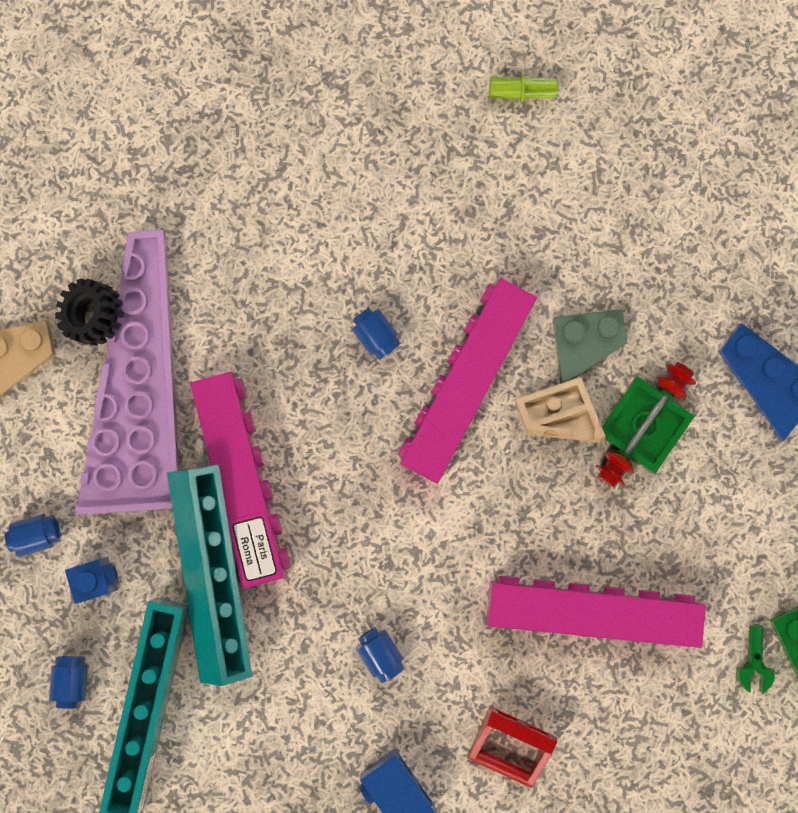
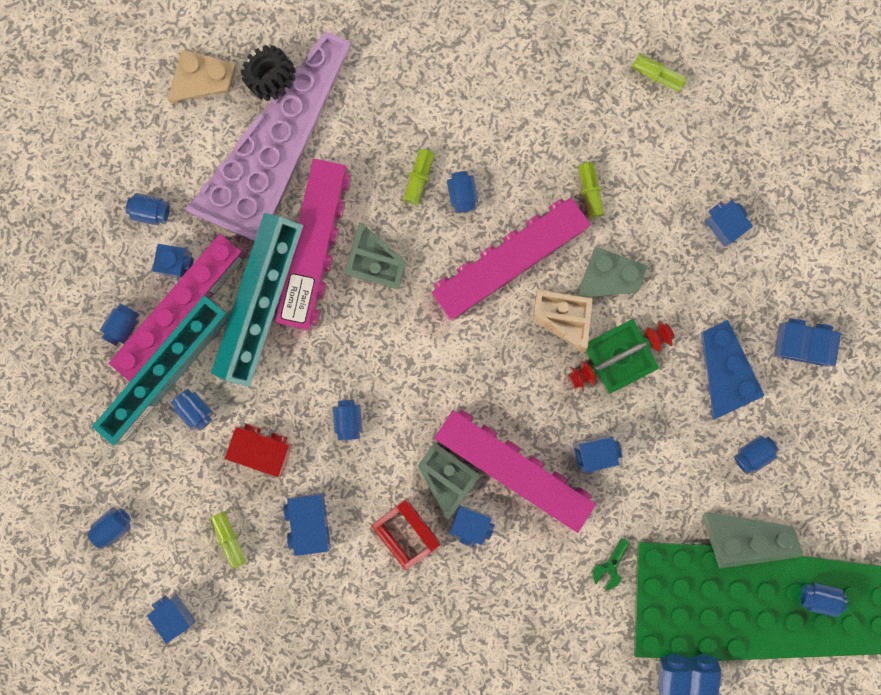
camera: 30 degrees right, 0 degrees up
(133, 588) = (202, 279): none -> dark pink brick
(201, 734) = (192, 410): none -> blue brick
(299, 740) = (258, 450): none -> red brick
(316, 459) = (374, 260): none -> sand green wing
(317, 340) = (418, 176): none -> lime axle
(516, 256) = (591, 190): none -> lime axle
(524, 660) = (447, 478): none -> sand green wing
(579, 700) = (471, 526): none -> blue brick
(677, 548) = (597, 453): none -> blue brick
(686, 214) = (728, 222): none -> blue brick

